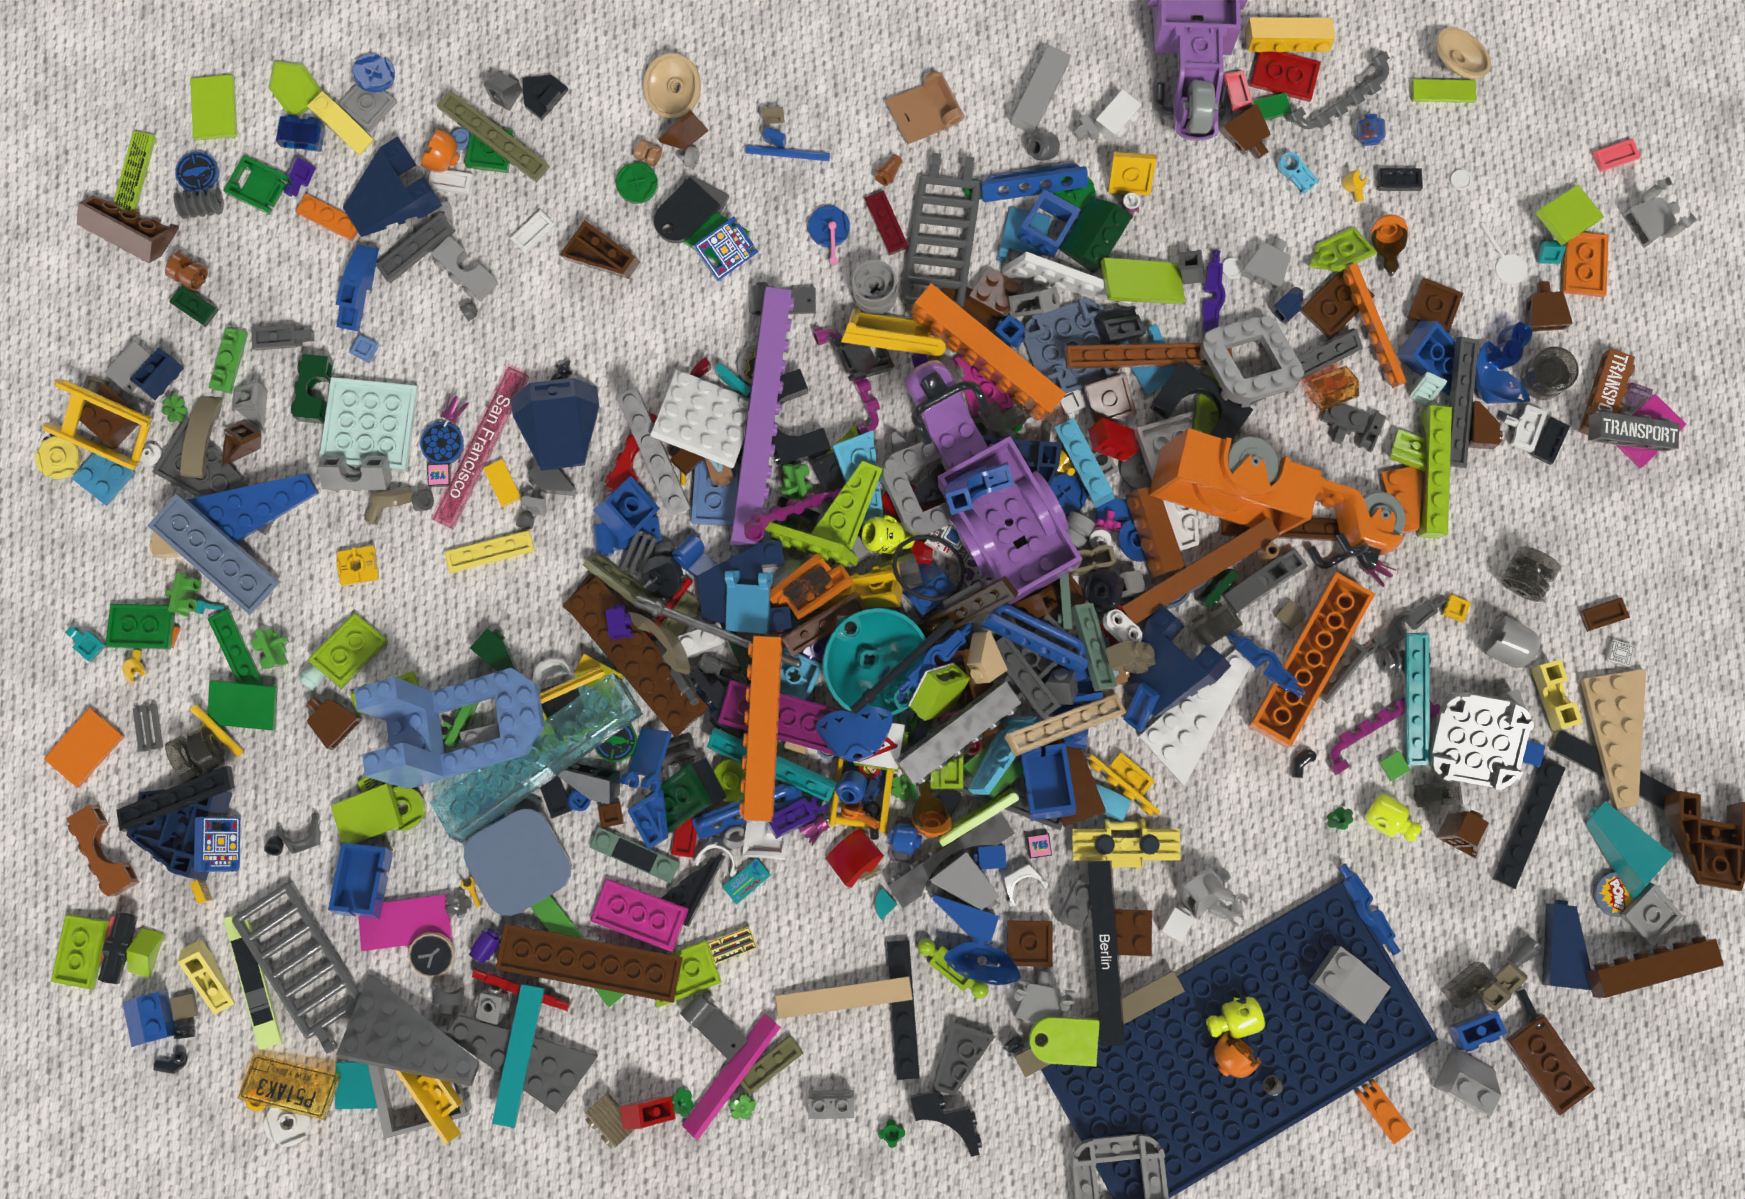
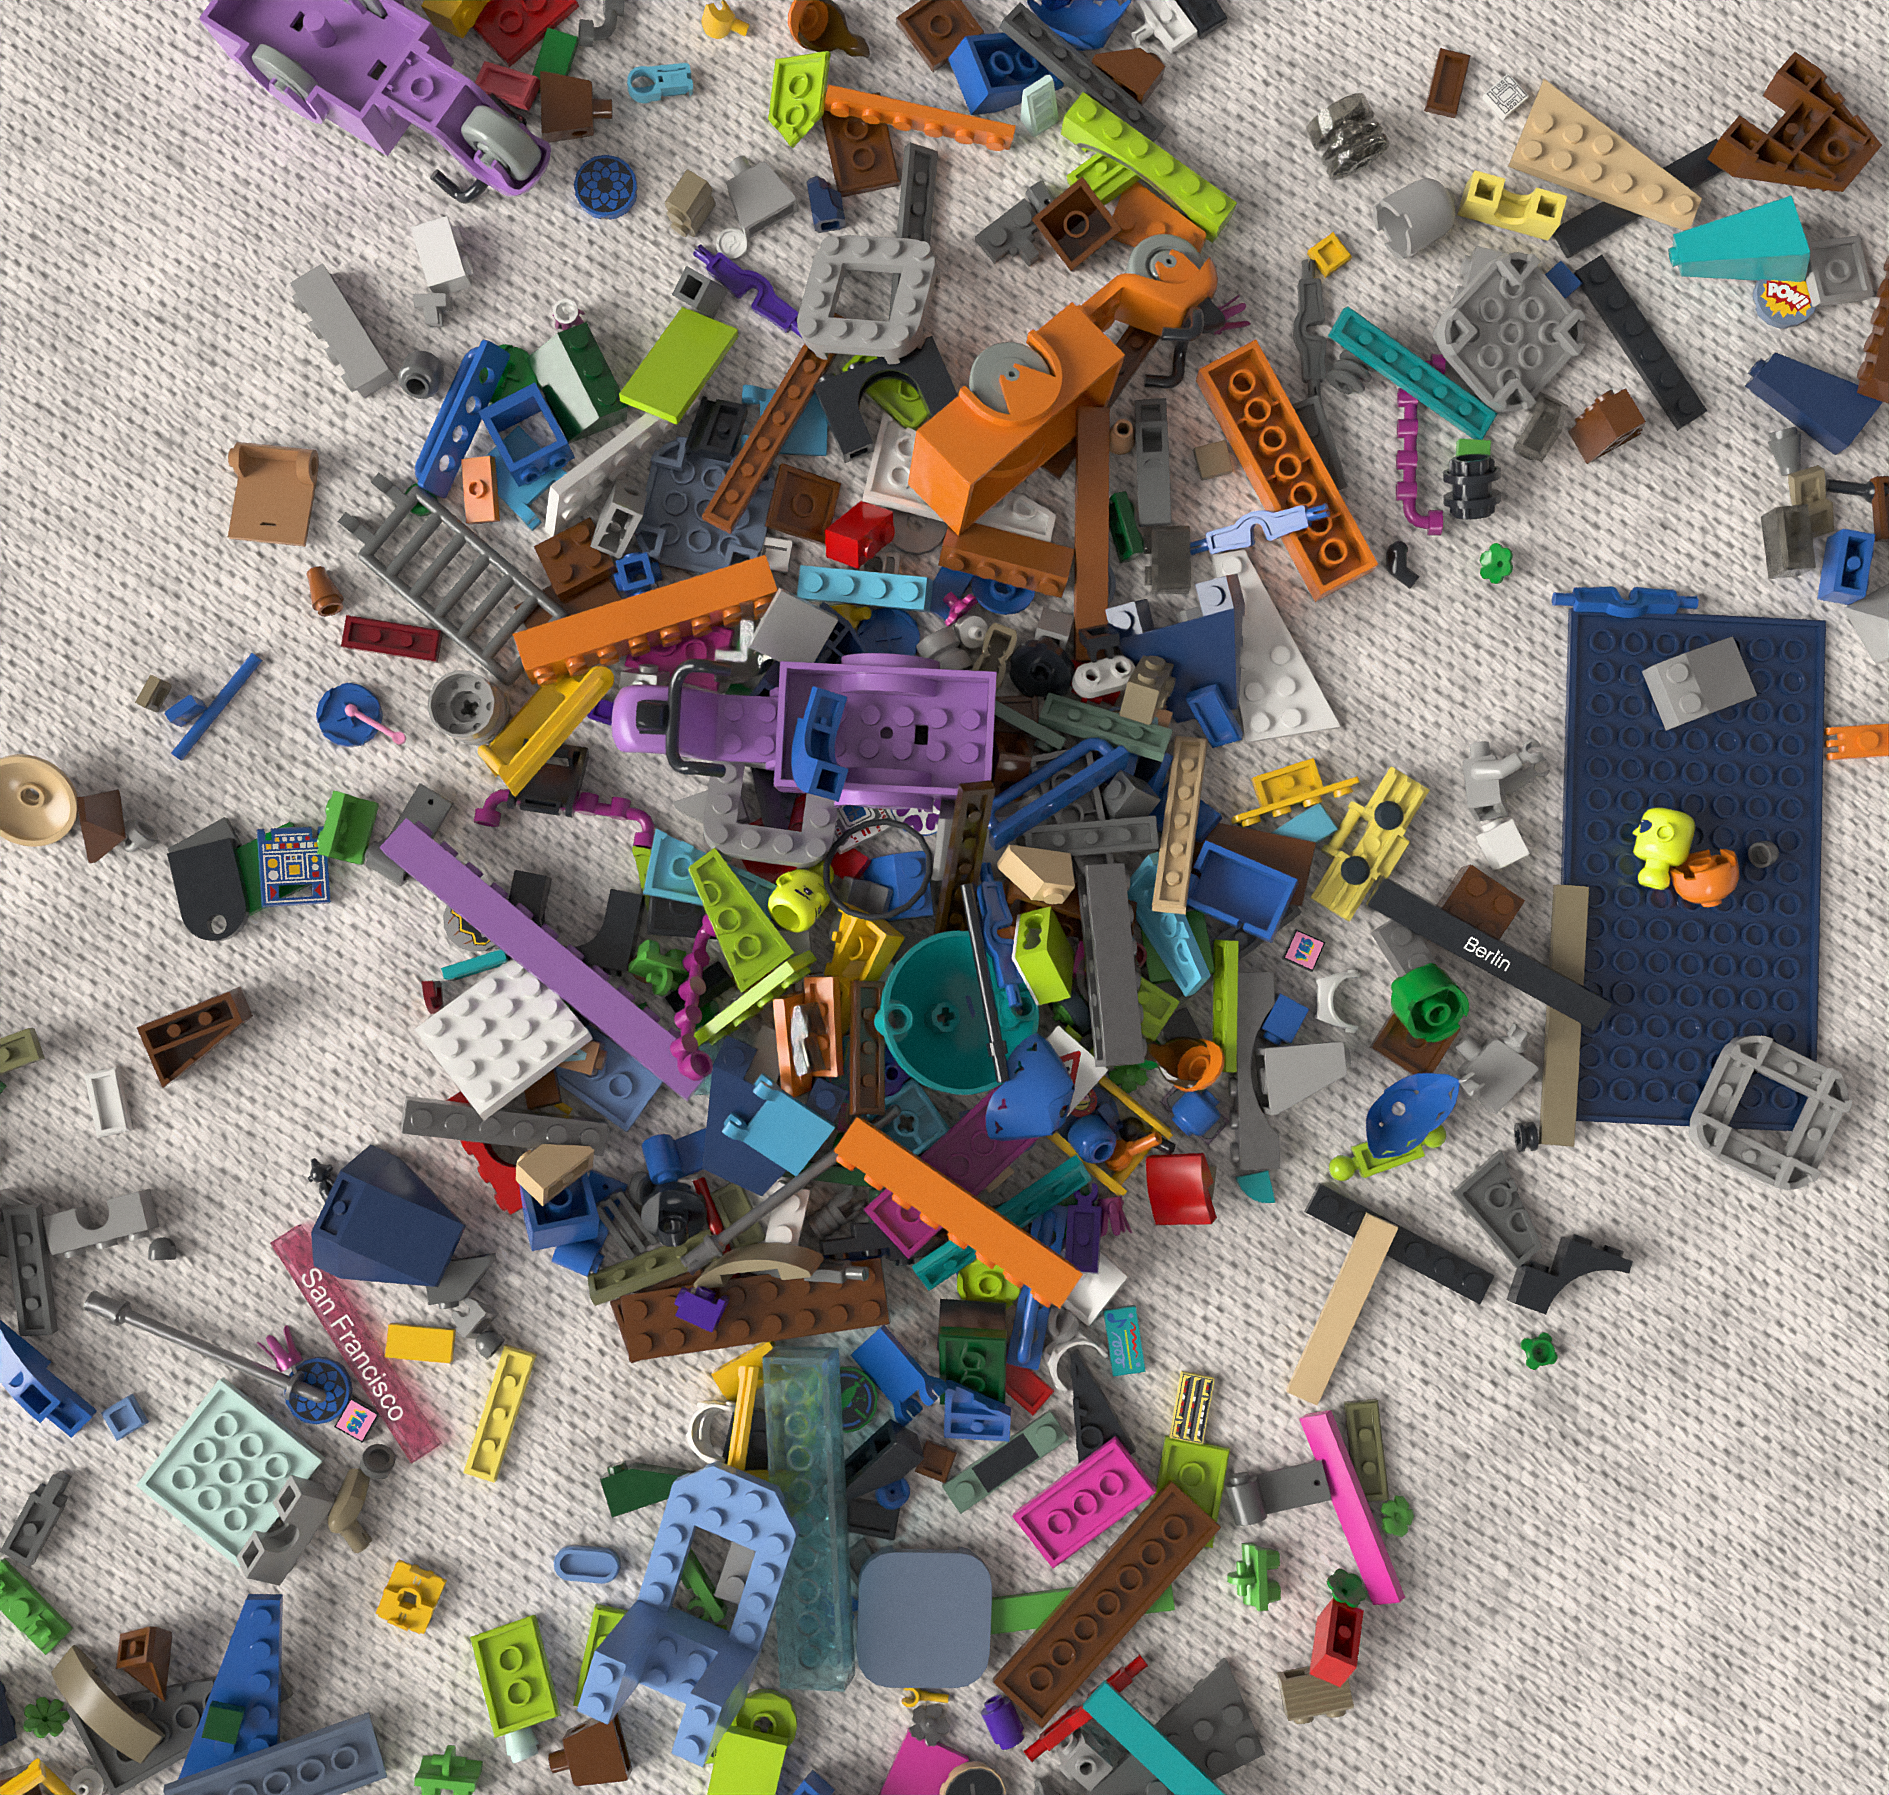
camera: 60 degrees left, 5 degrees up
(230, 504) = (223, 1722): none -> dark green tile
(251, 403) = (103, 1609): light grey slope -> none
(311, 370) = (111, 1506): dark green arch -> none
(421, 309) = (121, 1312): none -> flat silver bar
(434, 652) = (587, 1564): none -> medium blue tile
(636, 183) = (129, 926): green tile -> none
(646, 492) = (552, 1169): none -> tan slope
(648, 153) = (98, 887): medium nougat wheel -> none
(655, 1040) = (1252, 1576): none -> bright green hips
(679, 751) = (910, 1325): dark grey tile -> none
(765, 264) = (347, 828): none -> bright green bracket
(831, 1104) = (1461, 1405): light grey window -> none
(972, 921) = (1353, 1093): blue slope -> none
(1001, 218) = (480, 490): none -> plate
(1034, 434) = (792, 629): none -> light grey tile
(1054, 934) = (1429, 1003): none -> green brick
(1068, 1040) = (1563, 1067): lime tile -> none
(1132, 173) = (529, 287): yellow tile -> none
(1142, 610) = (1099, 638): none -> black tile
(1217, 179) = (605, 187): none -> tile
(1237, 230) = (689, 204): none -> dark tan brick
(1333, 388) = (965, 220): clear orange brick -> none
(1372, 451) = (1076, 224): none -> reddish brown slope
(1374, 774) = (1472, 486): none -> black piece
(1392, 817) = (1536, 501): neon yellow piece -> none

